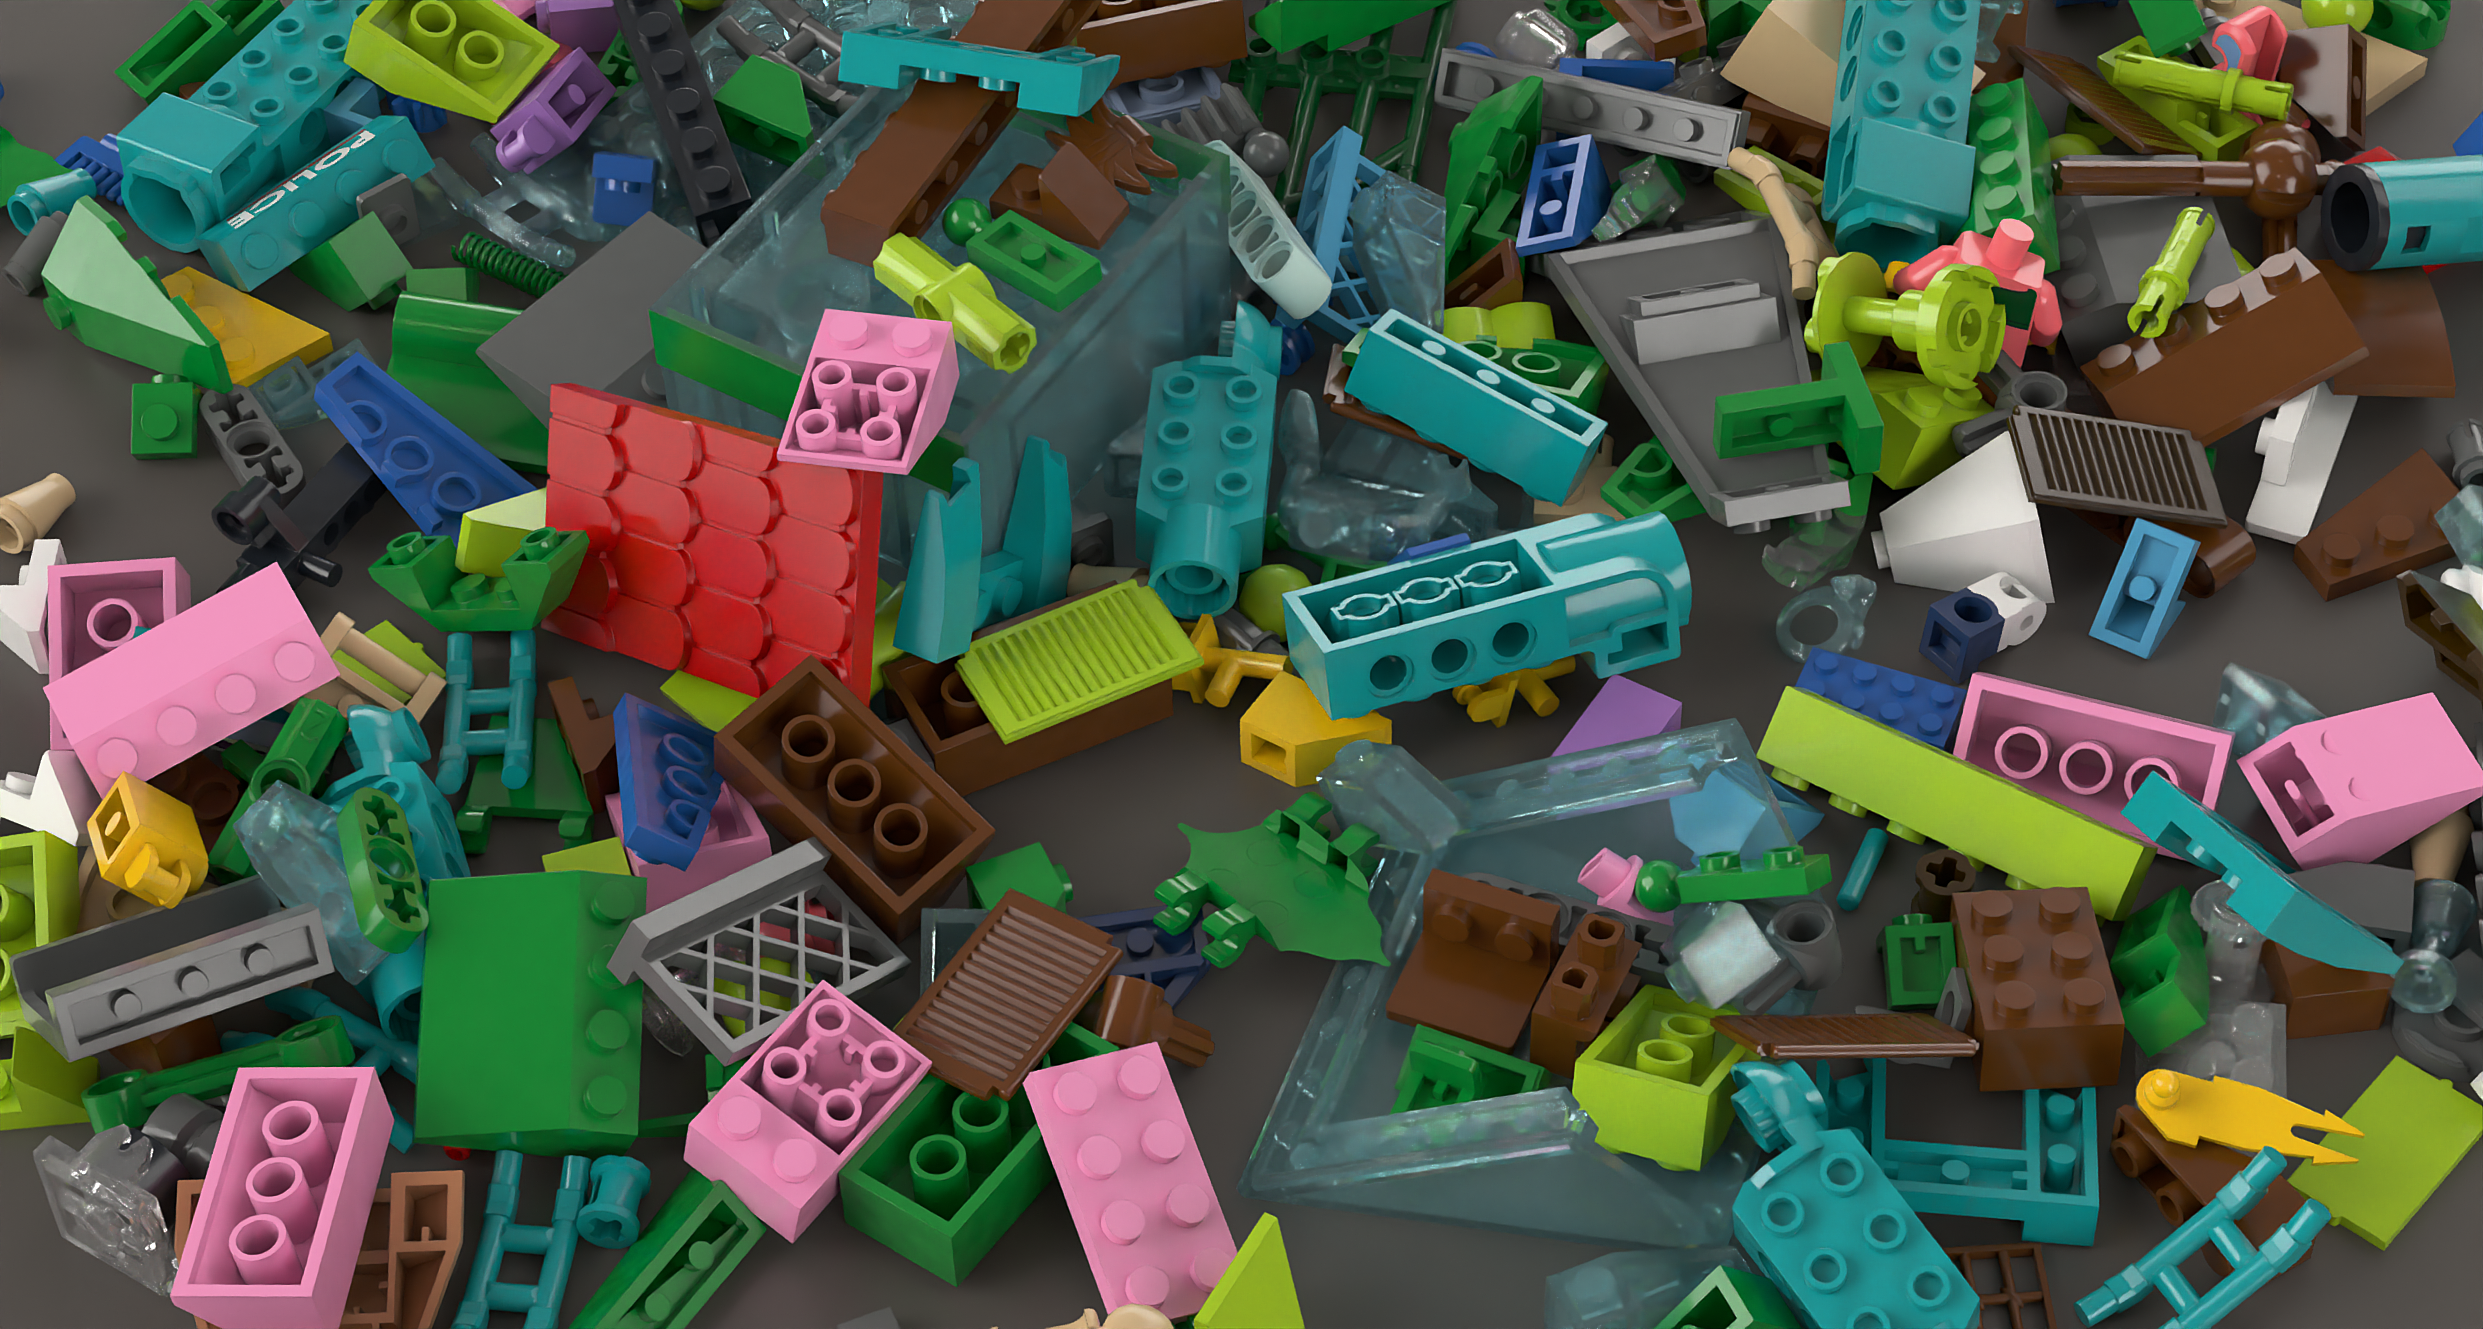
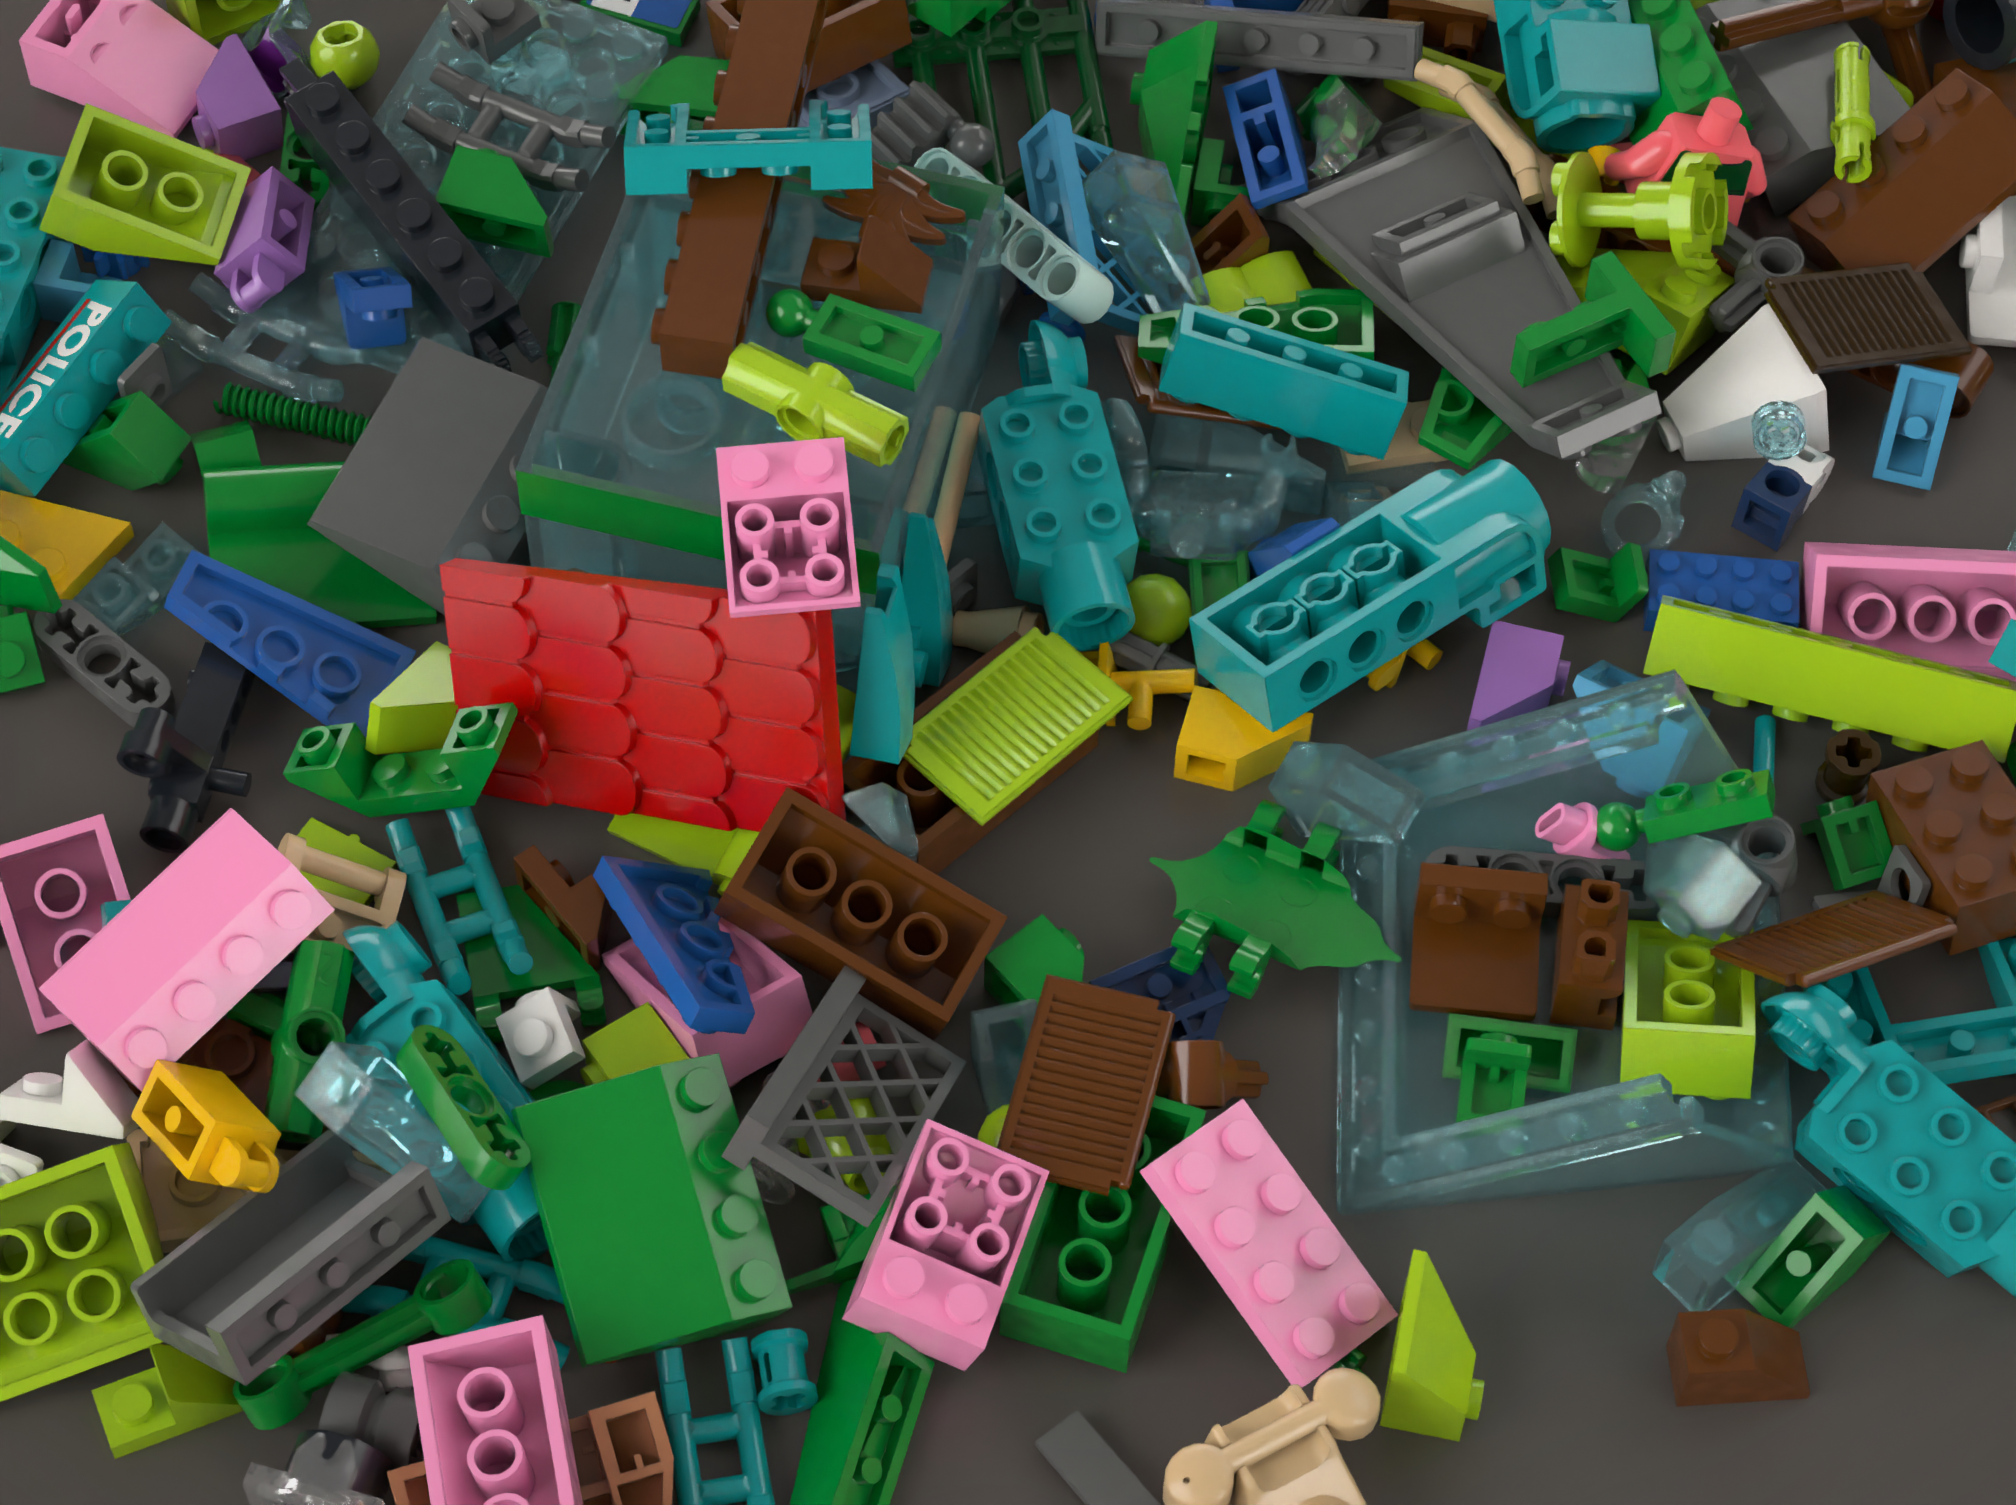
camera: 20 degrees left, 10 degrees up
(510, 840) = (541, 1036): none -> white bracket
(908, 708) = (886, 814): none -> clear light blue slope
(1110, 448) = (956, 479): none -> light nougat bar
(1744, 670) = (1597, 584): none -> green bracket
(1983, 538) = (1776, 444): none -> clear light blue bush

